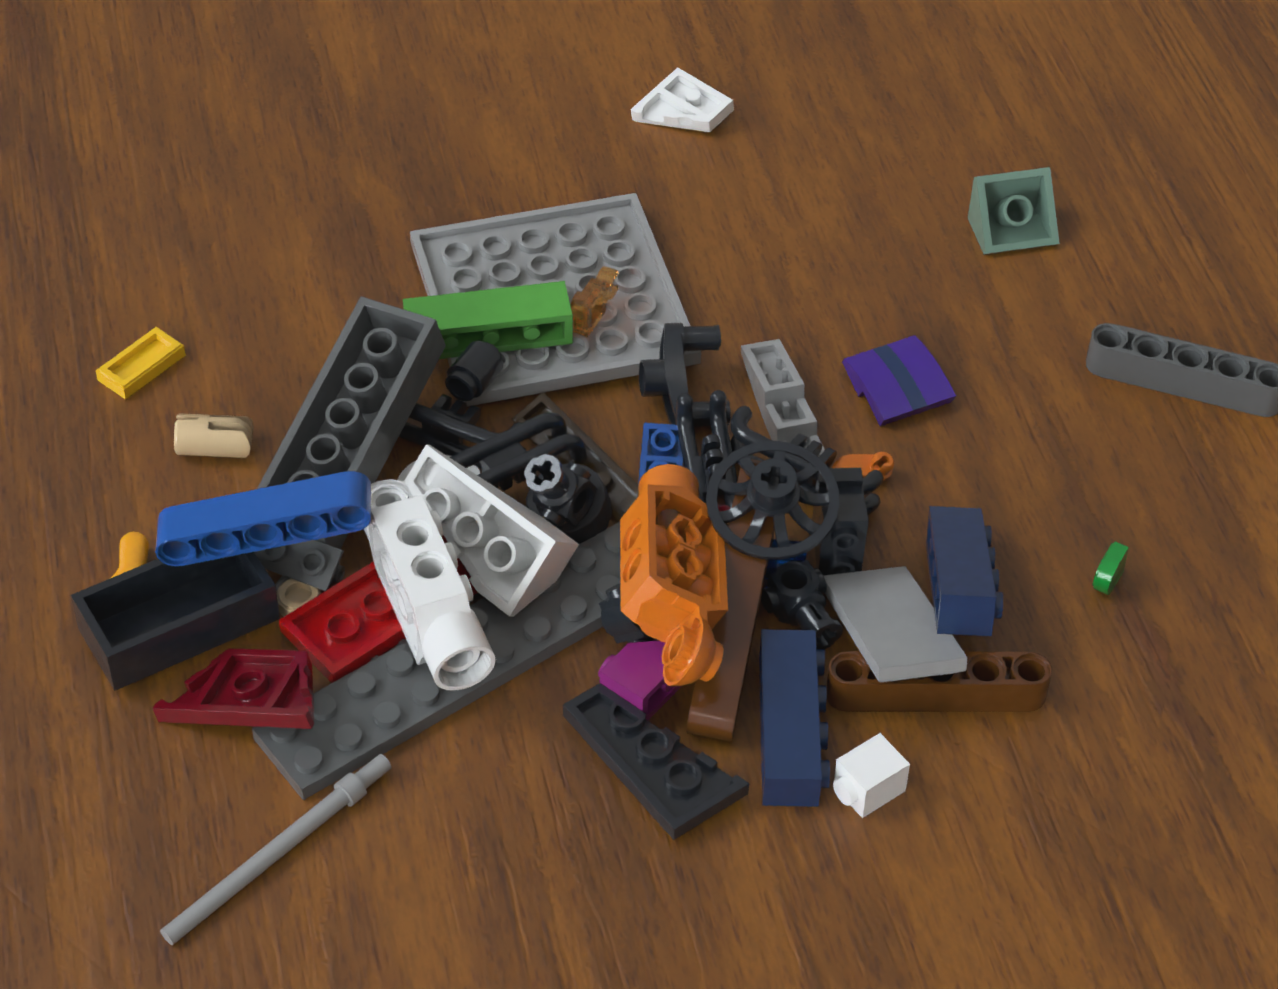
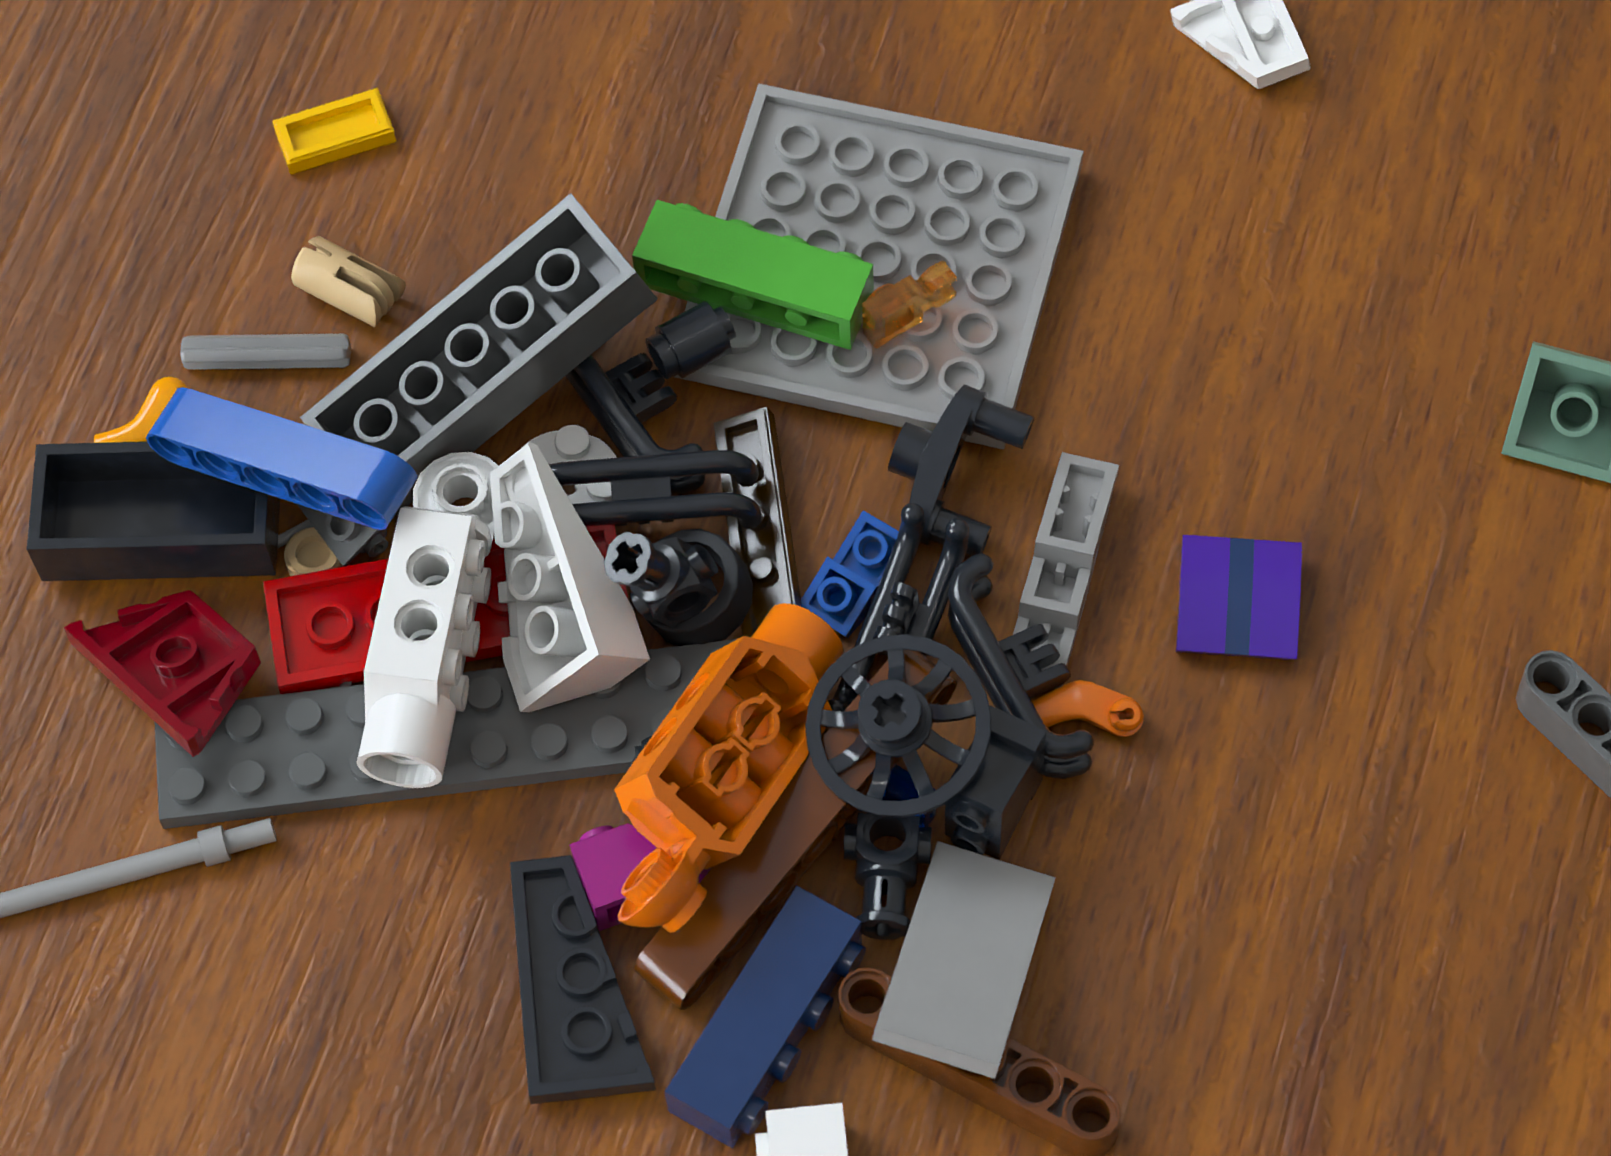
camera: 35 degrees right, 15 degrees up
(205, 487) = (265, 351): none -> light grey axle
(962, 571) = (1094, 931): dark blue brick -> none
(1110, 568) = (1310, 1018): green tile -> none

